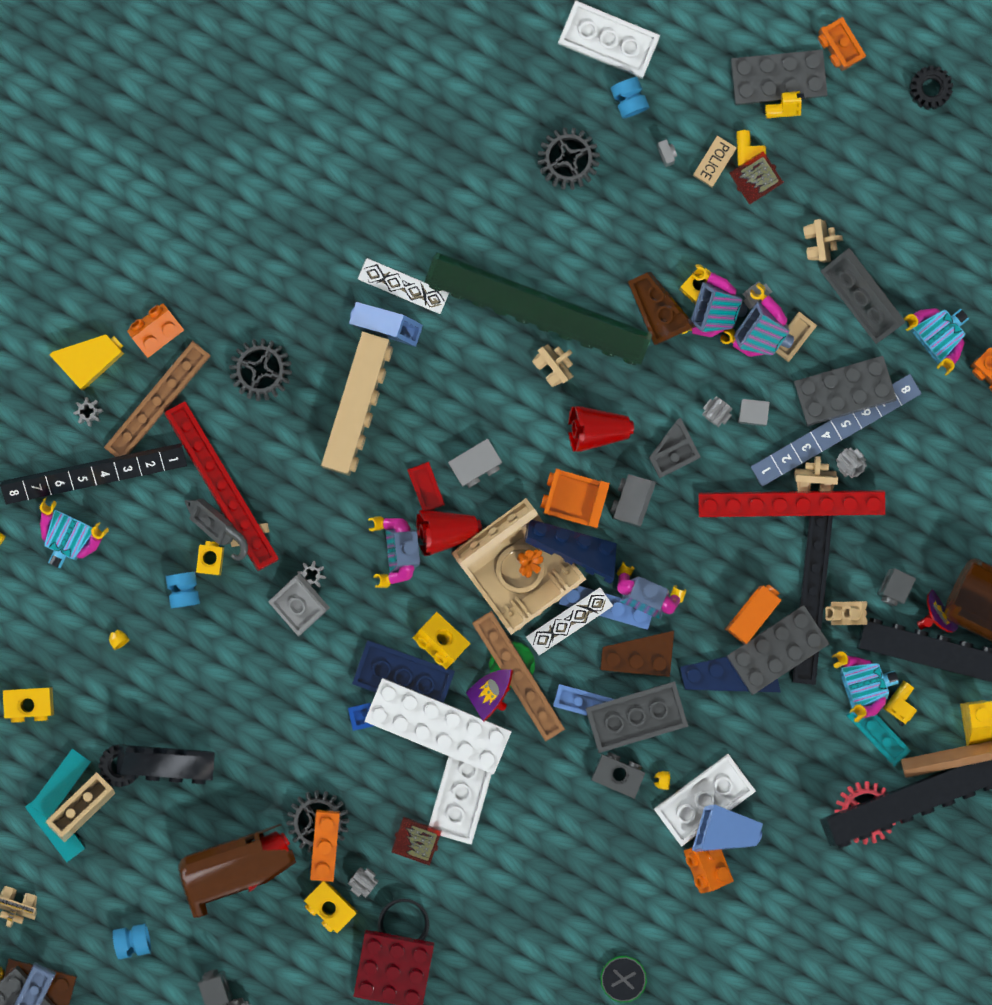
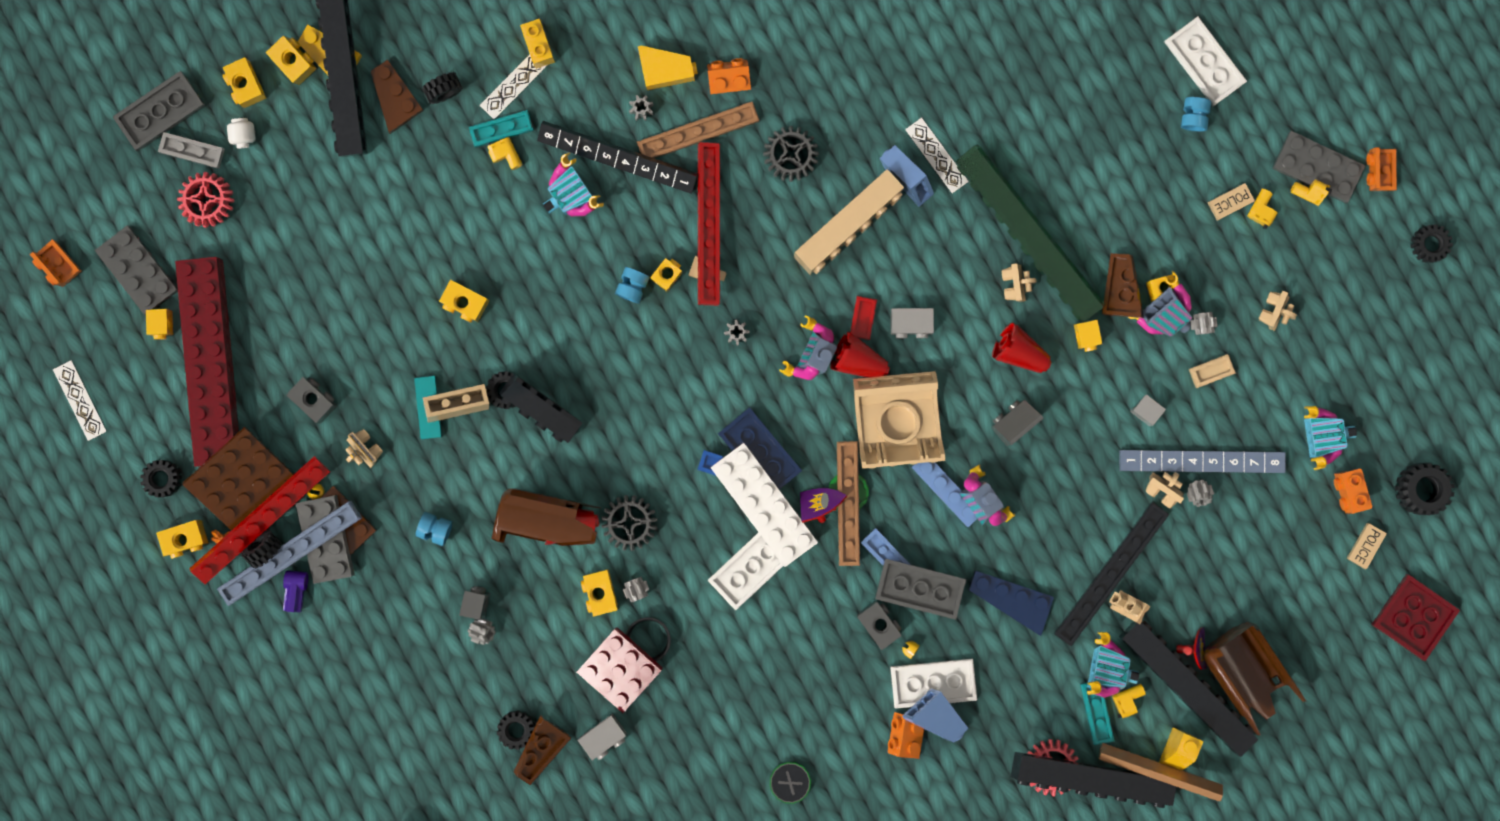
camera: 35 degrees right, 0 degrees up
(60, 783) = (452, 376): teal tile -> none
(118, 639) = (560, 293): yellow hinge -> none
(216, 525) = (686, 251): dark grey plate -> none
(298, 604) = (713, 349): light grey tile -> none
(324, 845) = (624, 544): orange plate -> none
(416, 841) = (695, 582): piece -> none
(452, 641) = (807, 432): yellow brick -> none
(530, 561) = (909, 421): orange plant -> none
(569, 621) = (911, 485): white sticker -> none
(575, 498) = (972, 394): orange panel -> none
(578, 153) = (1123, 116): dark grey gear -> none
(587, 551) = (958, 440): dark blue wing -> none
(640, 656) = (950, 544): reddish brown wing -> none
(653, 374) = (1088, 335): none -> yellow brick
(667, 152) = (1199, 173): light grey plate -> none
(674, 450) = (1069, 403): dark grey wing -> none
(717, 411) = (1120, 393): light grey gear -> none
(753, 613) = (1057, 564): orange window -> none
(756, 177) = (1256, 232): piece -> none
(763, 328) = (1194, 350): torso -> none
(777, 650) = (1058, 602): dark grey plate -> none
(791, 503) = (1136, 497): red plate -> none
(845, 391) = (1227, 435): dark grey plate -> none
(862, 296) = (1285, 371): dark grey plate -> none
(896, 587) = (1178, 608): dark grey brick -> none

